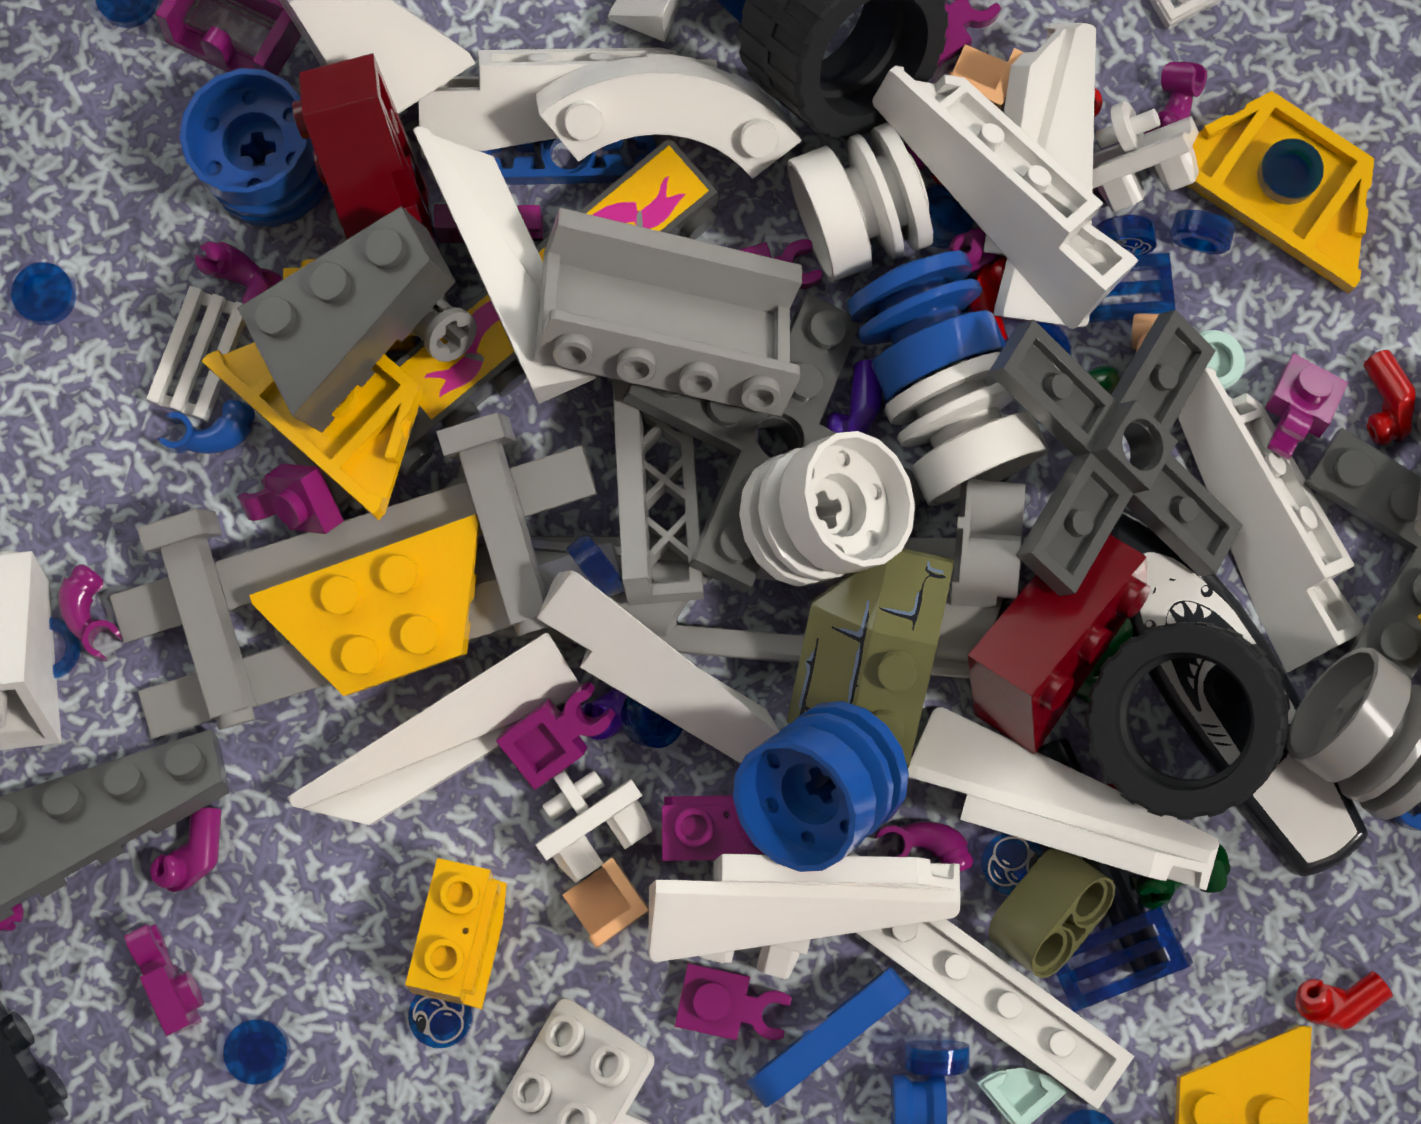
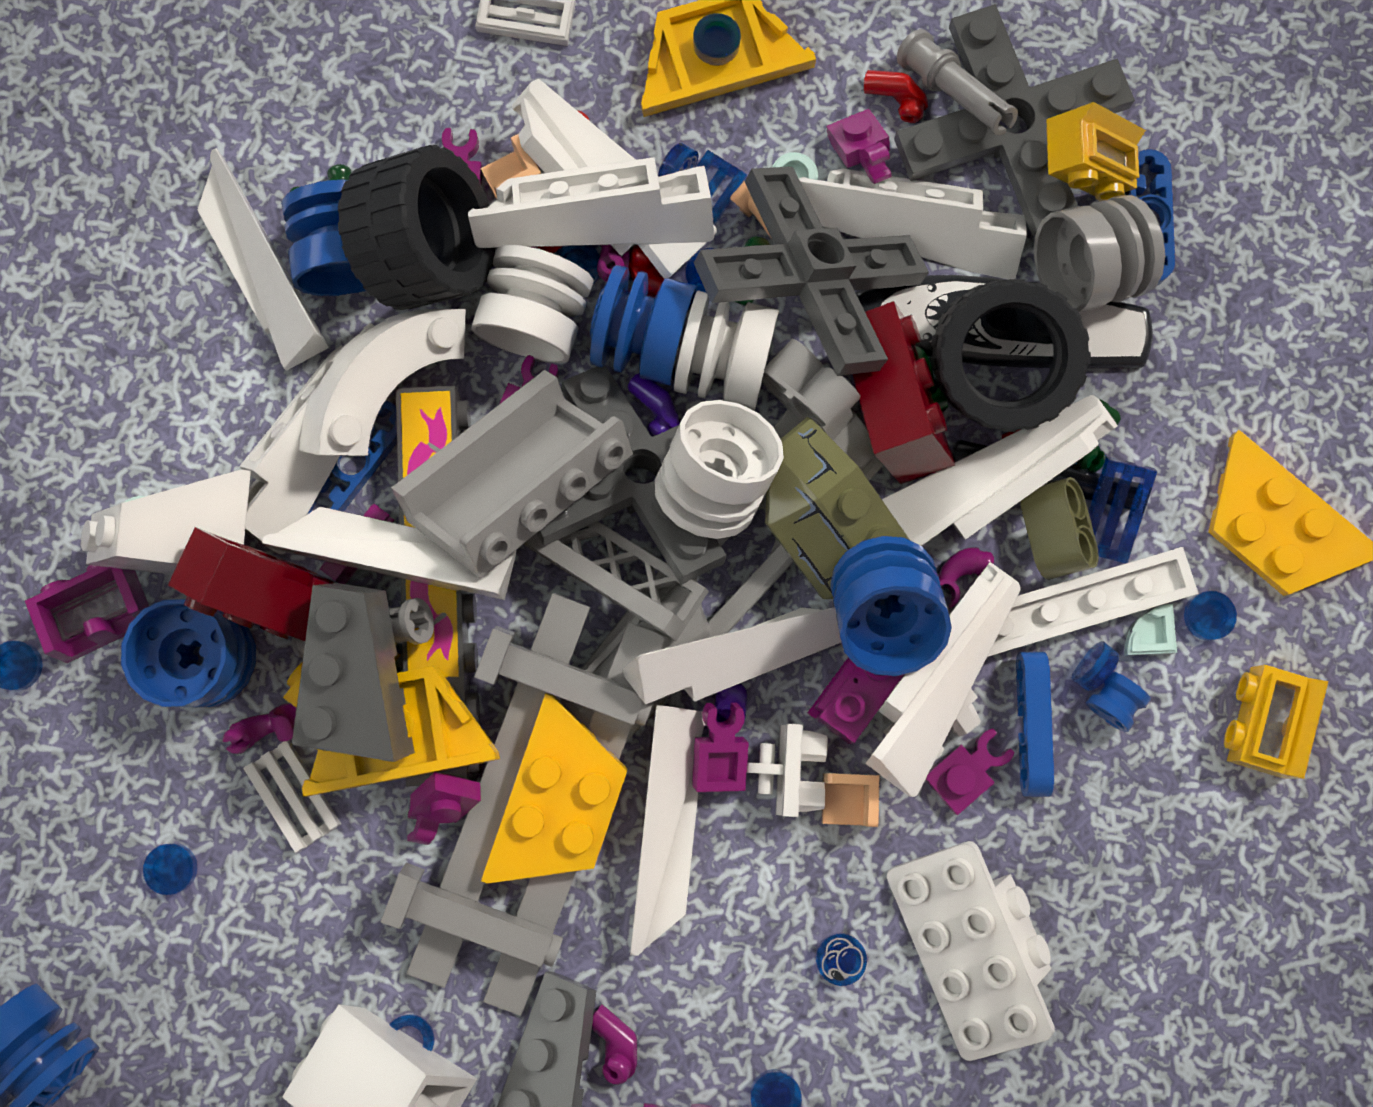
camera: 60 degrees left, 0 degrees up
(75, 606) = (395, 1002): magenta arm -> none
(221, 436) = (358, 821): blue arm -> none
(458, 934) = (801, 909): yellow window -> none
(595, 565) = (638, 641): clear blue tile -> none
(646, 726) = (757, 690): clear blue tile -> none
(1007, 861) = (1007, 533): clear blue tile -> none
(1164, 148) = (630, 113): white hips -> none
(1184, 82) = (608, 60): magenta arm -> none
(1202, 231) = (711, 119): clear blue tile -> none
(1341, 1007) = (1239, 403): red arm -> none

